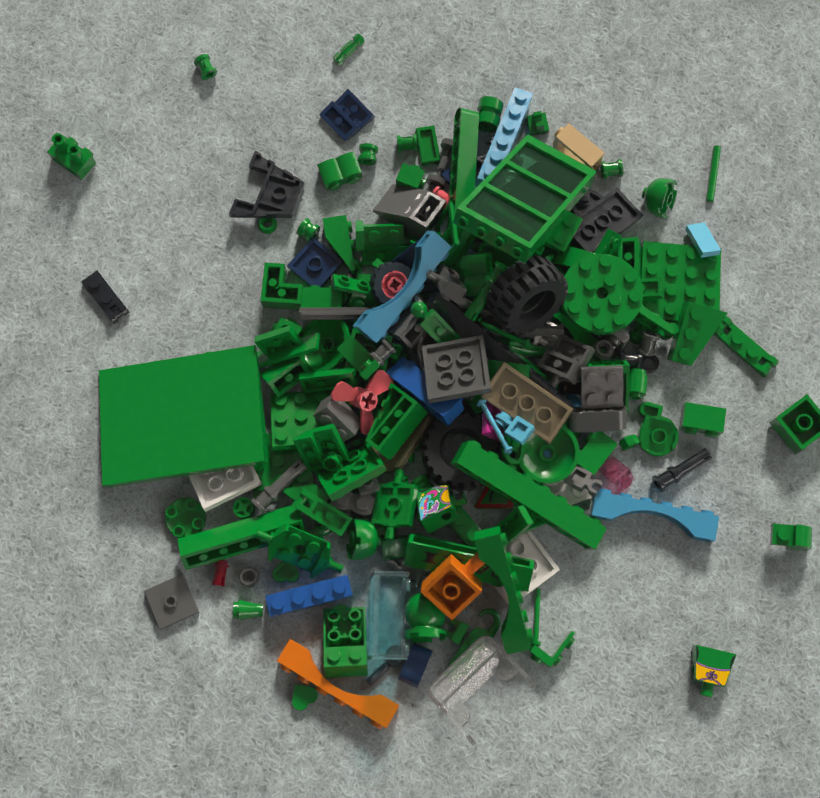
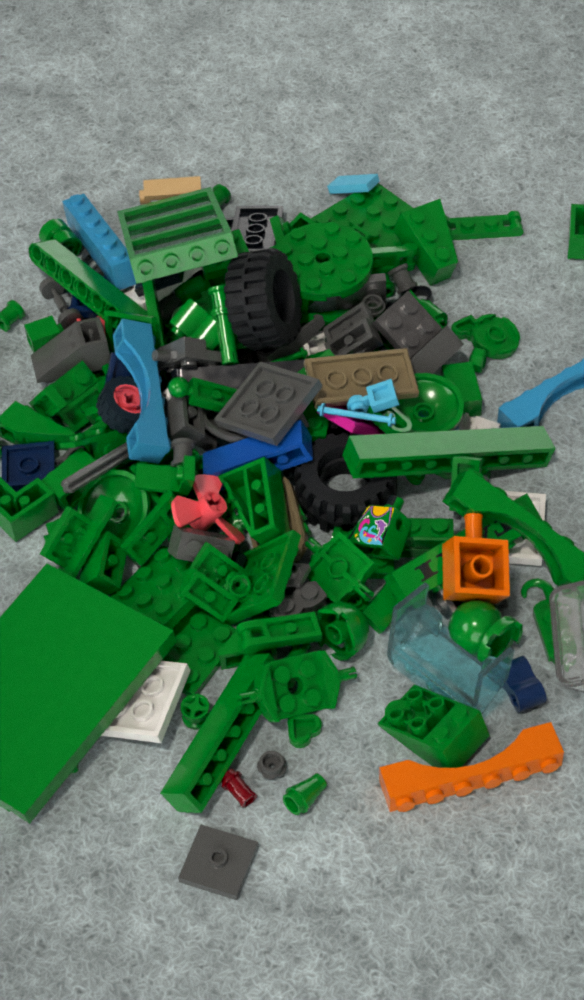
camera: 45 degrees left, 25 degrees down
(185, 517) = (143, 774): green dish -> none
(271, 493) = (209, 667): dark grey pin -> none
(303, 696) = (452, 815): green tile -> none
(309, 596) = (351, 721): blue brick -> none
(382, 670) = (495, 718): black piece -> none
(428, 145) = (33, 306): green tile -> none
(459, 632) = (525, 616): green tile -> none
(492, 500) = (419, 491): piece -> none
(537, 123) = (110, 216): green tile -> none
(581, 479) = (477, 410): dark grey plate -> none
(617, 474) = (497, 388): clear pink bracket -> none
(660, 194) = (280, 183): green cylinder -> none
(674, 474) = (543, 349): black pin -> none
(702, 419) = (514, 294): green brick -> none
(713, 173) = (303, 143): green bar -> none

